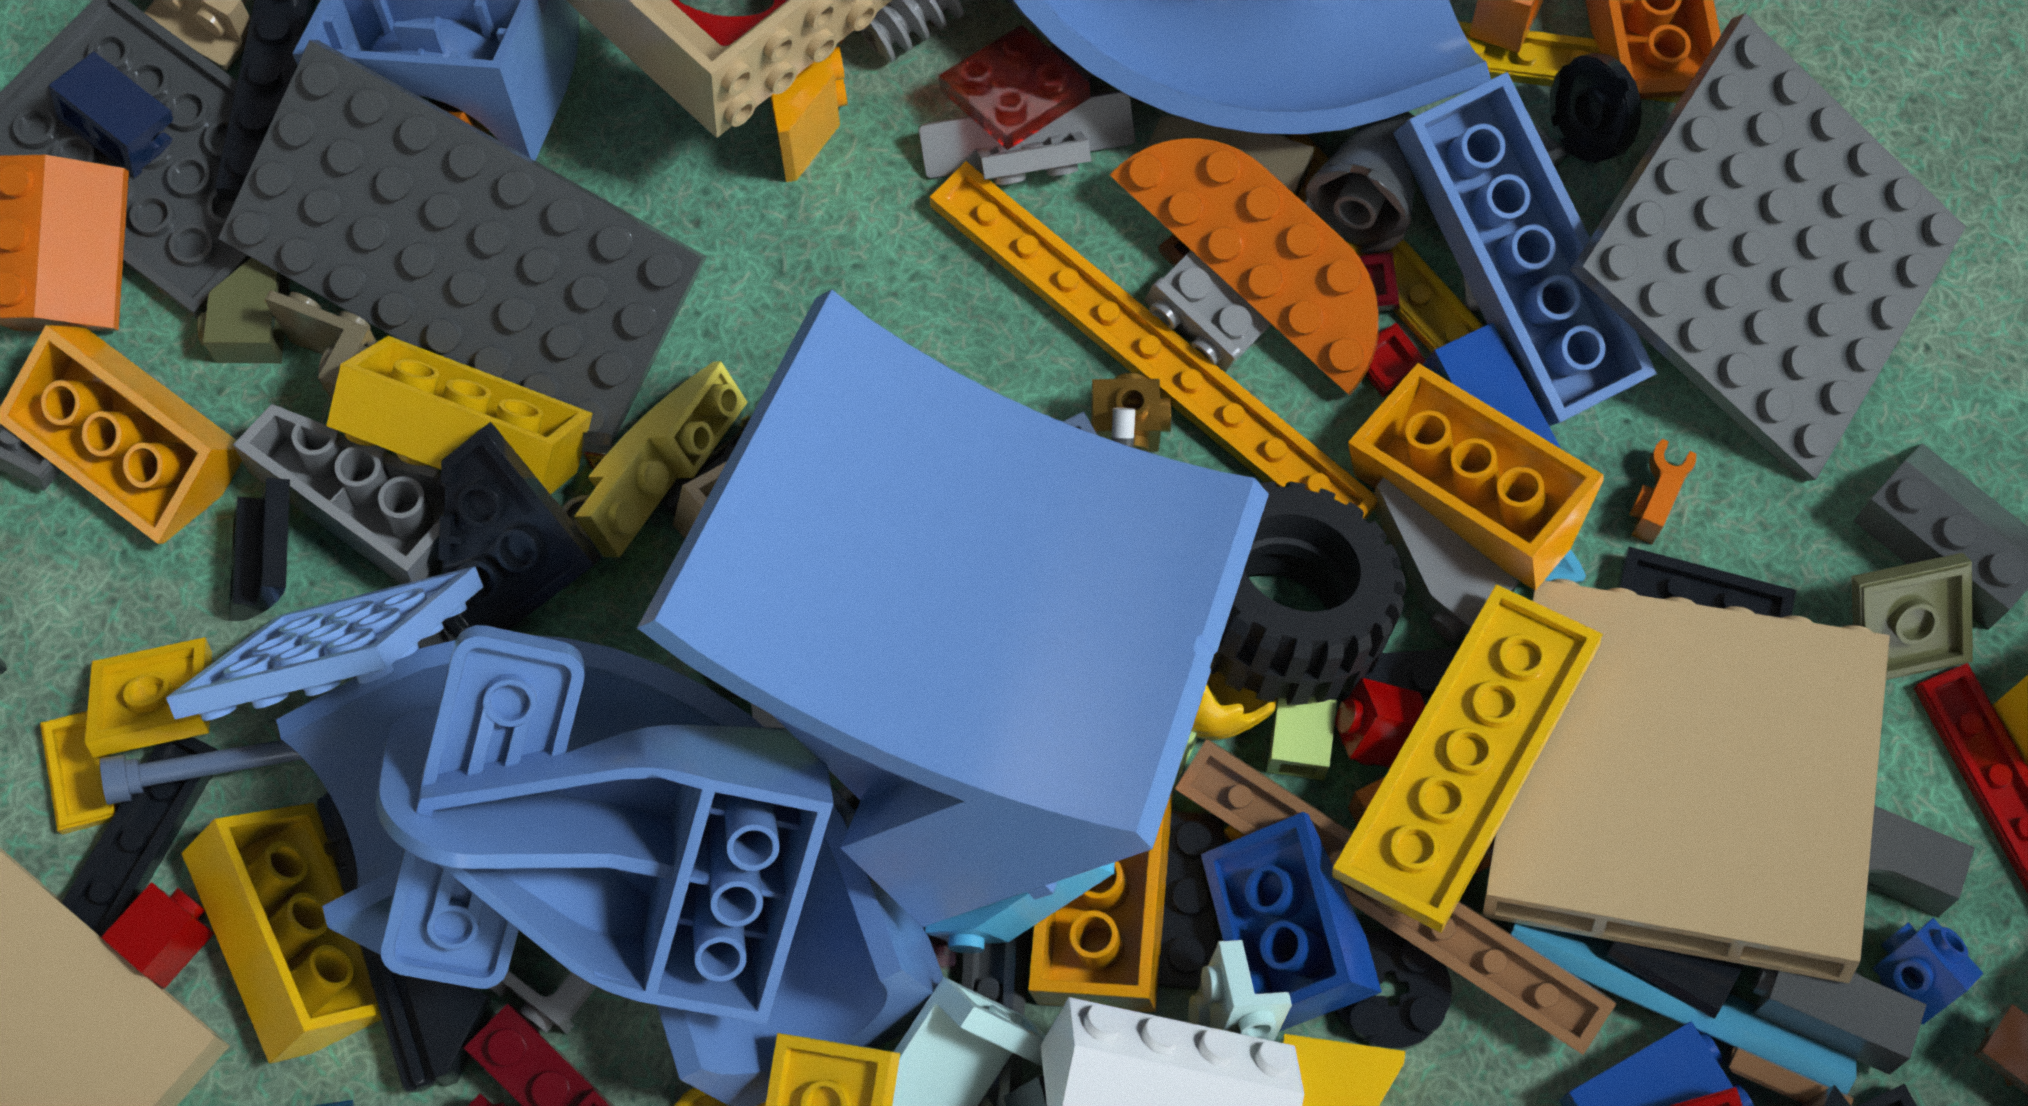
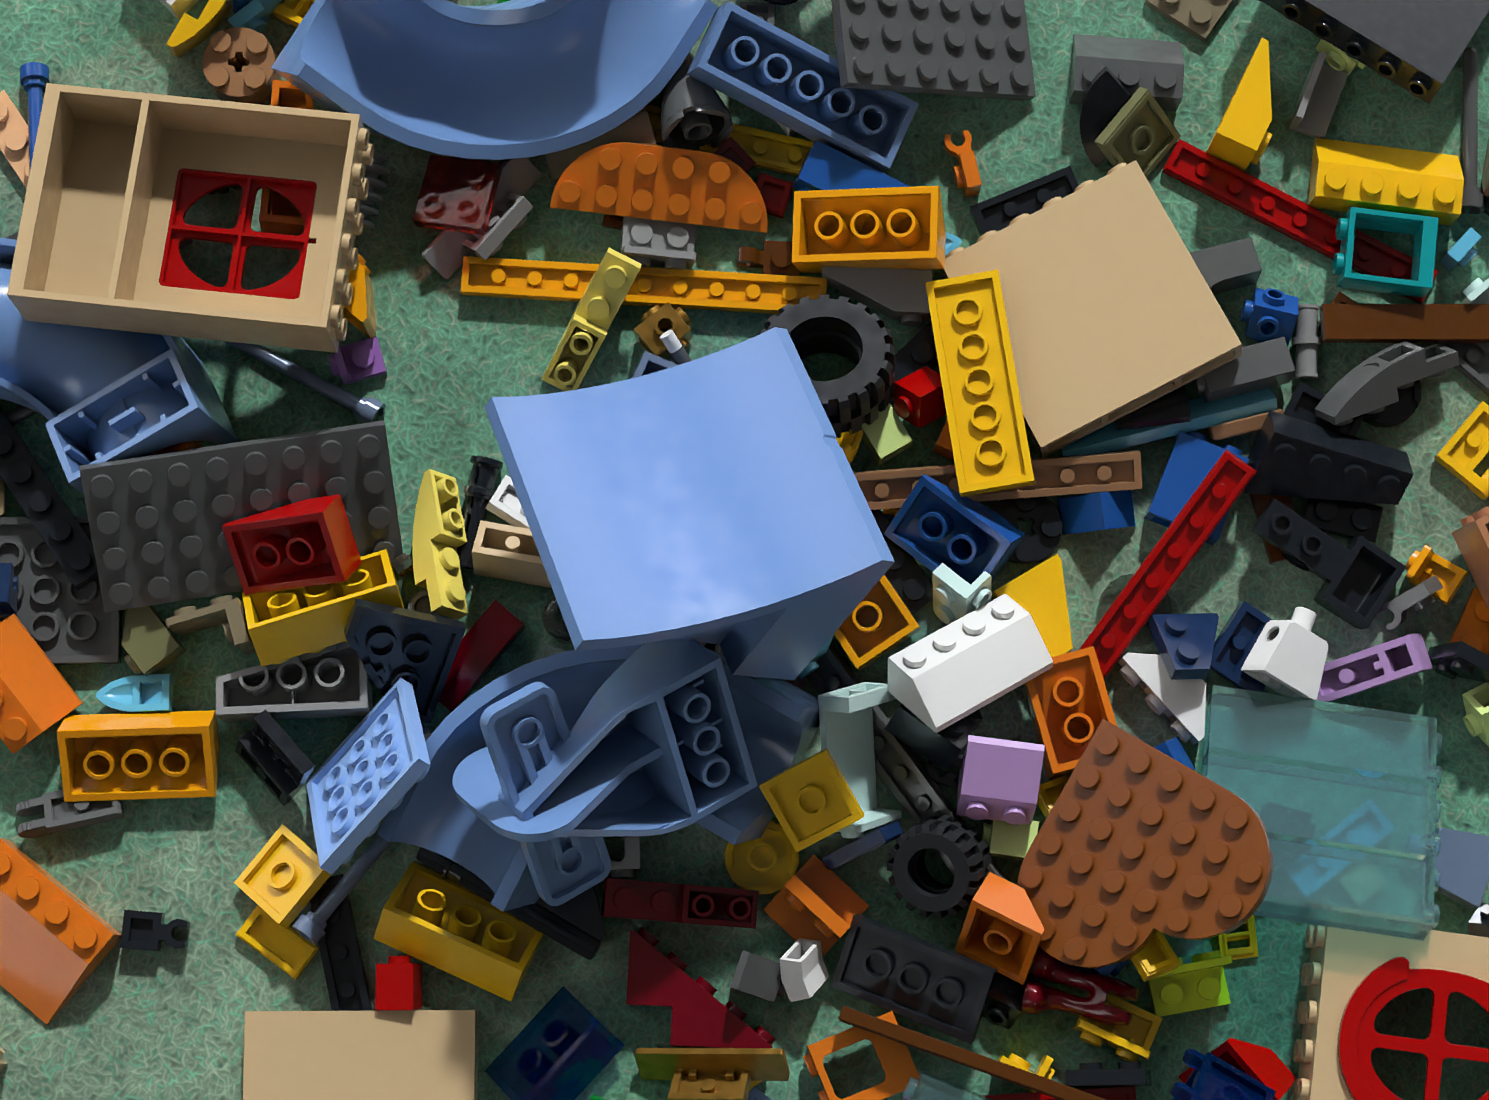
camera: 40 degrees left, 10 degrees up
(186, 367) = (139, 693): none -> medium azure plate
(484, 319) = (293, 546): none -> red slope
(598, 610) = (480, 652): none -> dark red slope
(706, 239) = (362, 408): none -> sand blue piece
(748, 188) = (358, 361): none -> medium lavender bracket
(1060, 332) = (591, 321): none -> light yellow slope
(1326, 430) = (774, 258): none -> reddish brown plate
(1502, 1042) = (1096, 512): none -> blue slope
(1890, 540) = (1098, 108): none -> black tile
(1952, 1040) = (1307, 342): none -> light grey pin

